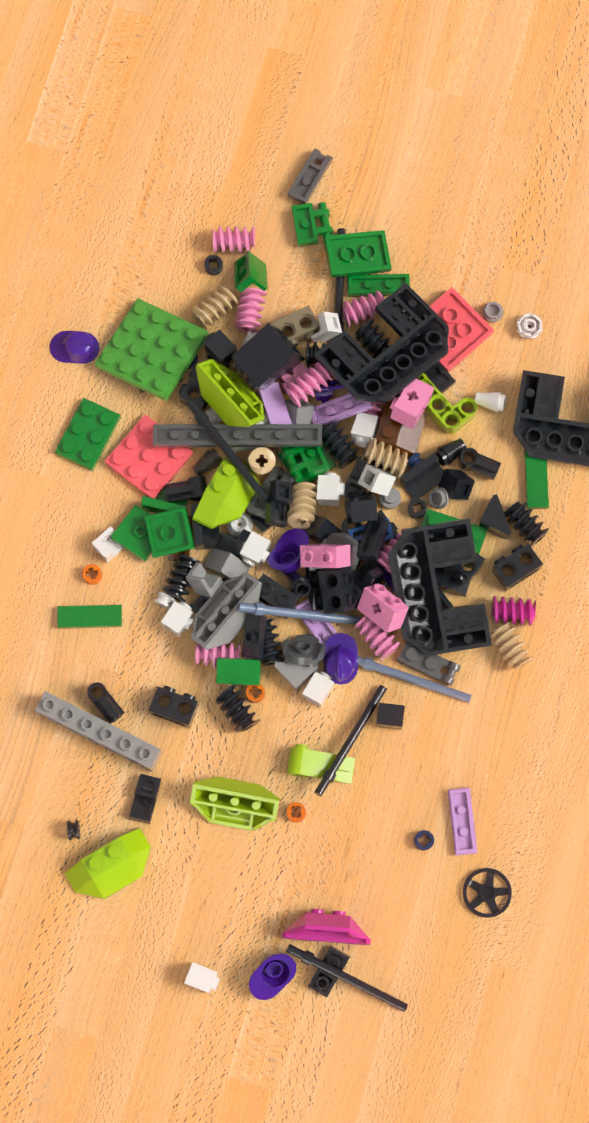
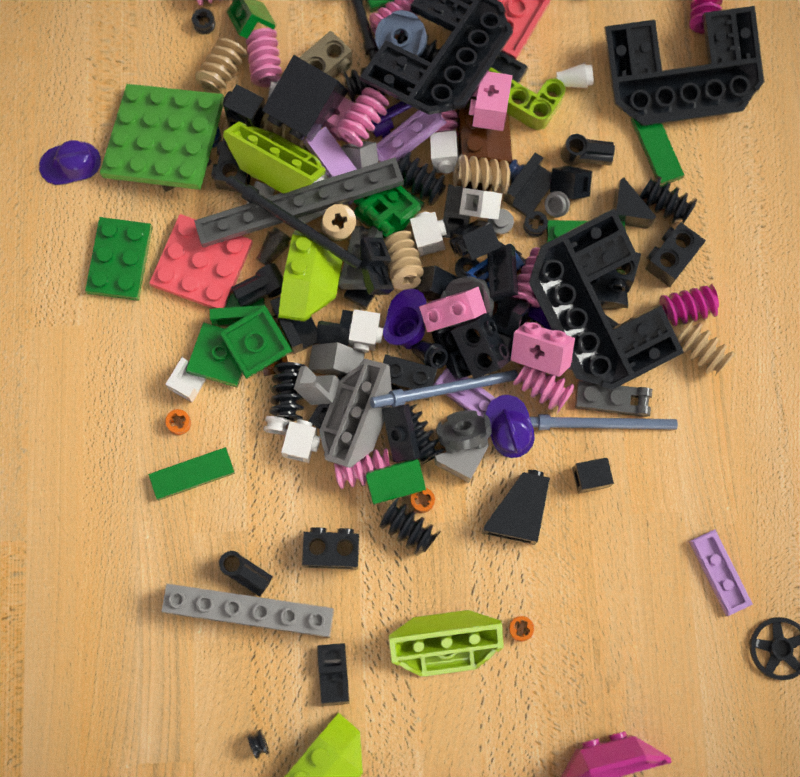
camera: 25 degrees left, 0 degrees up
(235, 530) = (334, 315): white plate -> none
(312, 763) = (529, 561): door -> none
(318, 688) = (496, 470): white brick -> none
(325, 724) = (521, 510): none -> black slope
(329, 327) = (362, 49): white panel -> none
(330, 774) = (548, 569): black bar -> none
(371, 326) = (398, 22): none -> sand blue plate
(419, 835) = (691, 616): dark blue bush -> none
(449, 452) = (551, 147): black cone -> none

